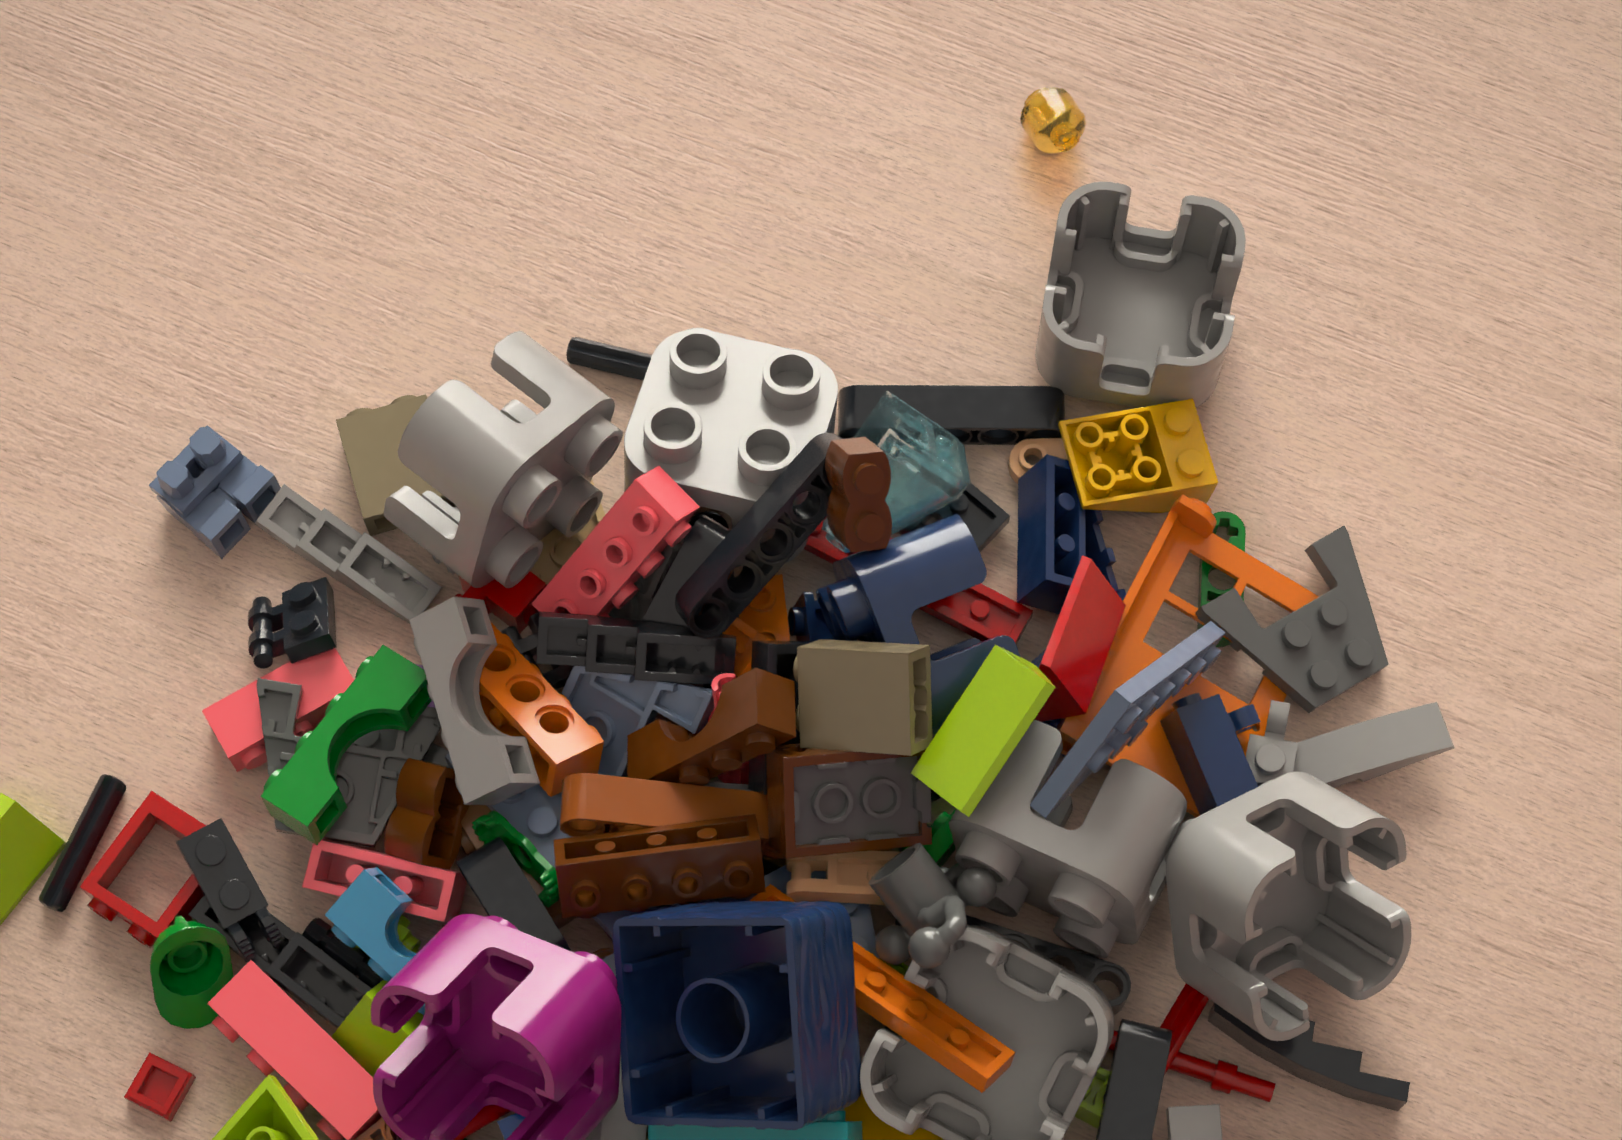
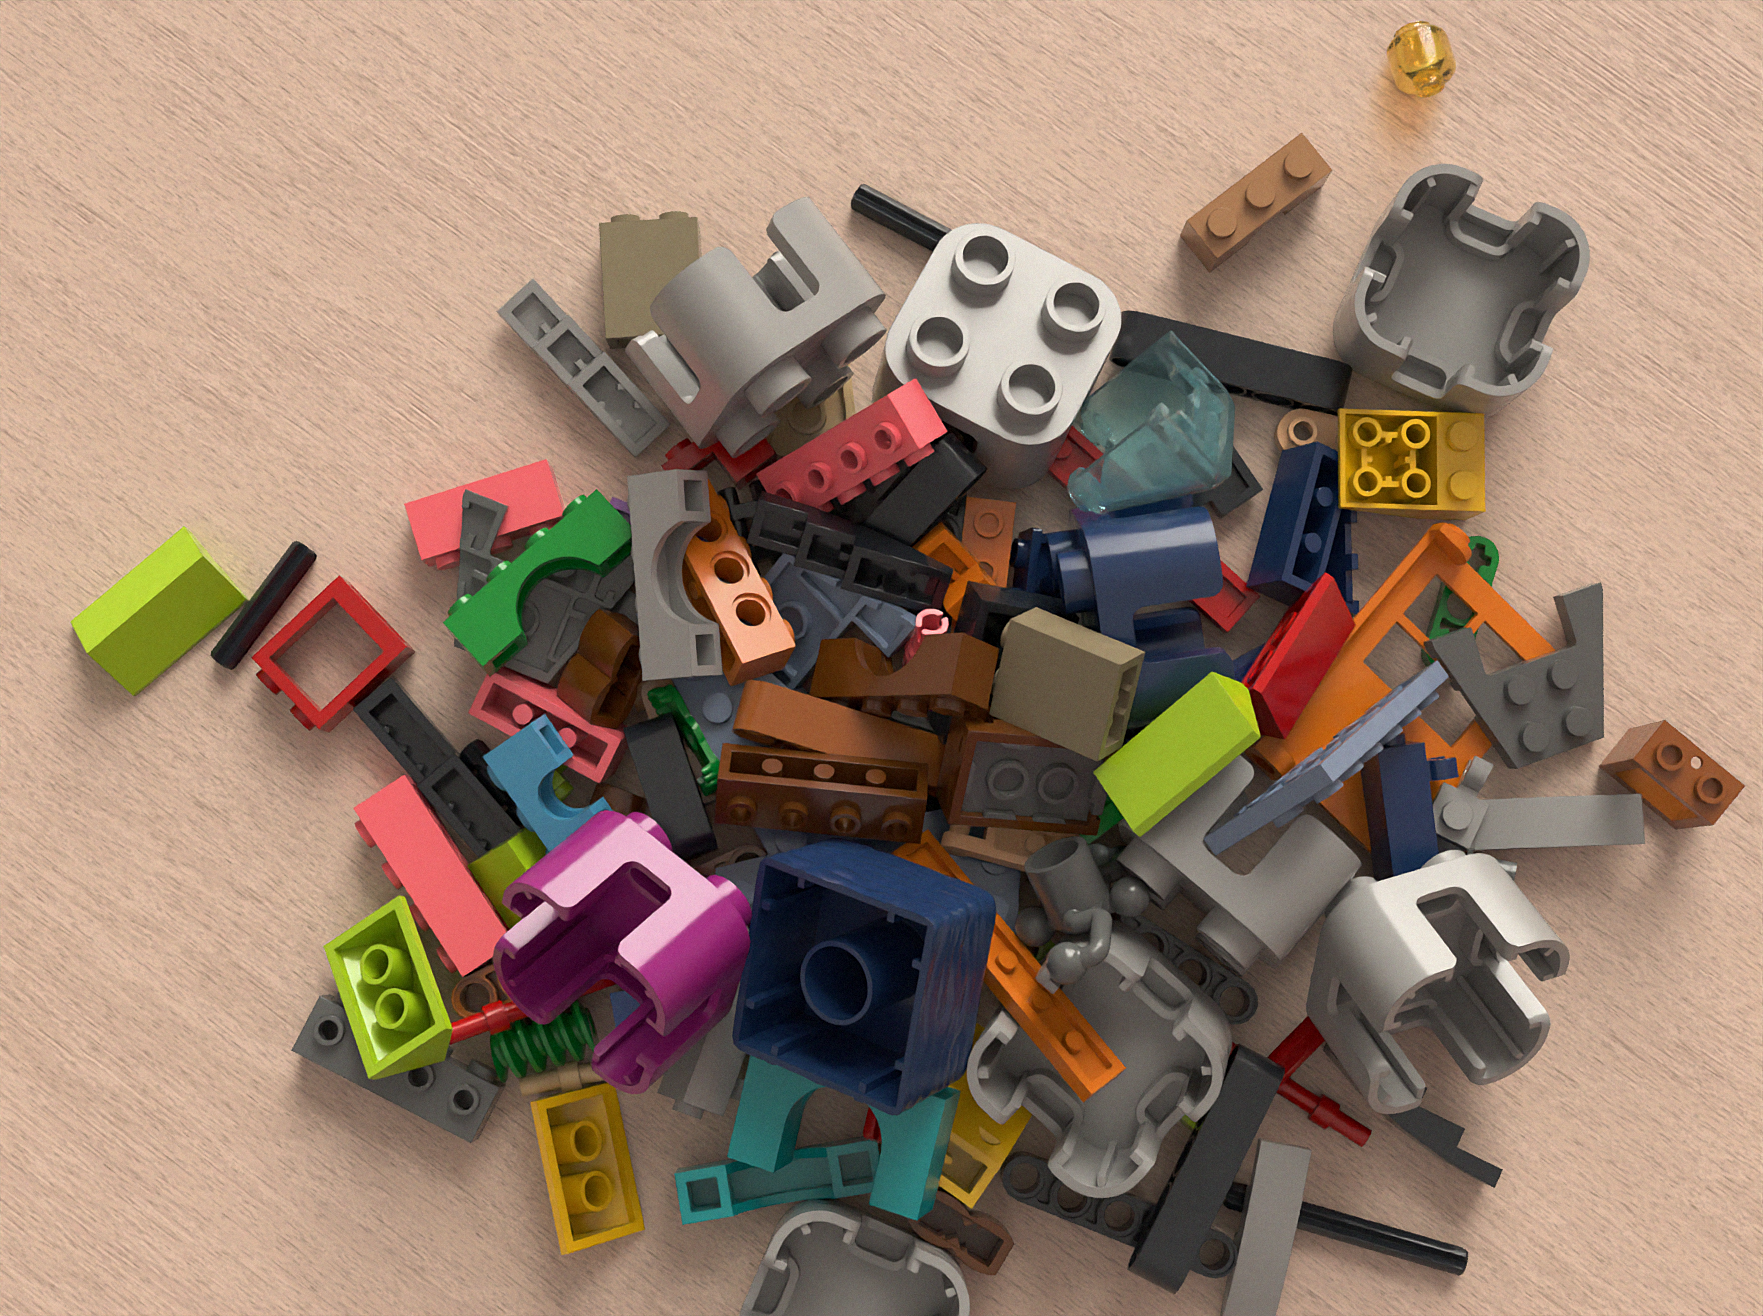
camera: 10 degrees right, 15 degrees up
(160, 1087) = (294, 868): red tile -> none
(187, 971) = (342, 767): green piece -> none
(211, 489) = (459, 262): sand blue hips -> none
(228, 884) = (395, 691): black hinge -> none
(305, 622) = (527, 436): black plate -> none
(744, 547) = (1011, 479): black beam -> none
(857, 501) = (1112, 471): reddish brown brick -> none
(950, 251) = (1254, 200): none -> medium nougat arch
(1480, 677) = (1658, 765): none -> dark orange window

